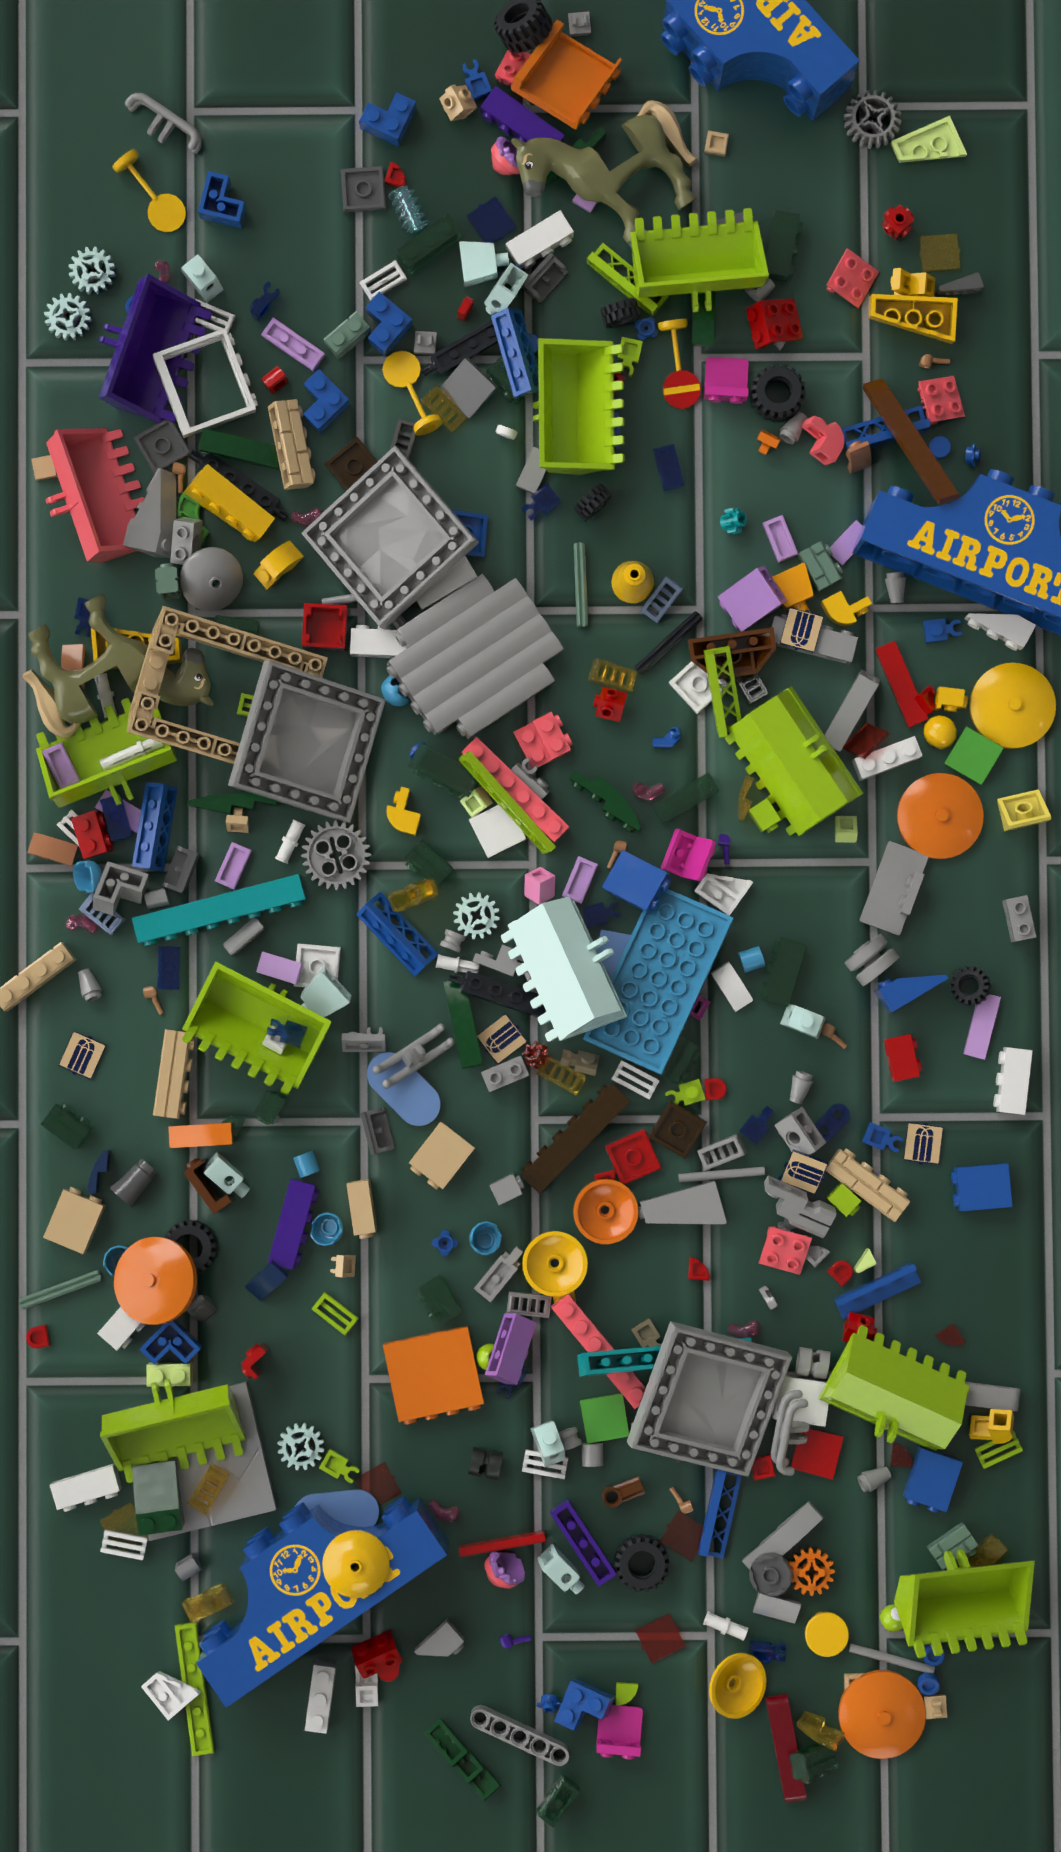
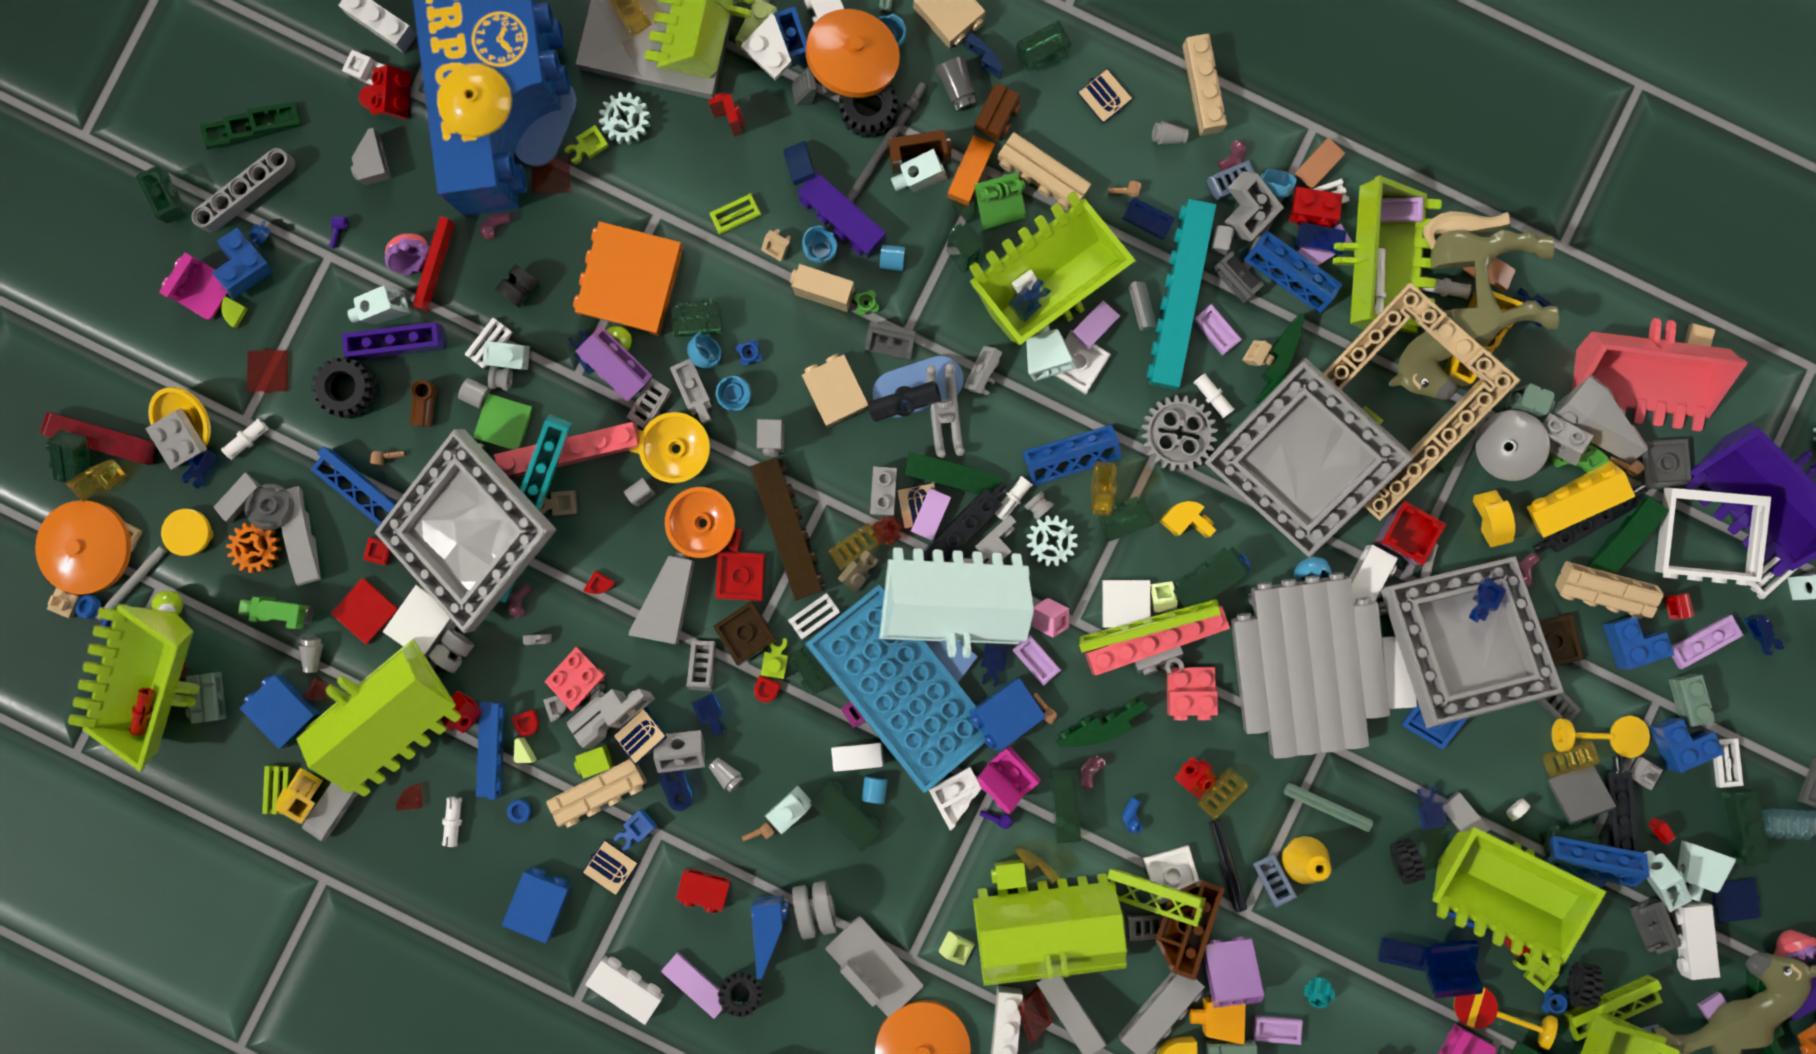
camera: 115 degrees right, 0 degrees up
(141, 1137) = (997, 112): none -> reddish brown brick
(171, 1213) = (910, 106): none -> dark grey bar
(185, 1352) = (768, 48): none -> white wing
(215, 1097) = (1000, 200): none -> bright green hinge
(347, 541) = (1488, 597): none -> clear blue plate
(354, 1173) = (866, 296): none -> bright green plate
(422, 1093) = (915, 397): none -> black piece
(462, 1280) = (704, 351): none -> dark azure hair
(504, 1025) = (930, 514): none -> lavender tile
(606, 1274) = (639, 492): none -> light grey brick
(659, 423) = (1453, 969): none -> clear blue bracket
(683, 1535) = (352, 442): clear red piece -> none
(721, 1174) = (680, 653): light grey bar -> none
(753, 1680) = (176, 438): none -> light grey plate
(787, 1430) = (396, 593): light grey piece -> none
(801, 629) = (1177, 1007): piece -> none
(855, 1530) = (270, 609): none -> bright green hips
(915, 1241) = (519, 811): none -> blue tile
(951, 1291) = (452, 821): none -> white pin
(988, 1552) = (182, 731): clear yellow slope -> none
(989, 1590) = (141, 711): none -> red pin

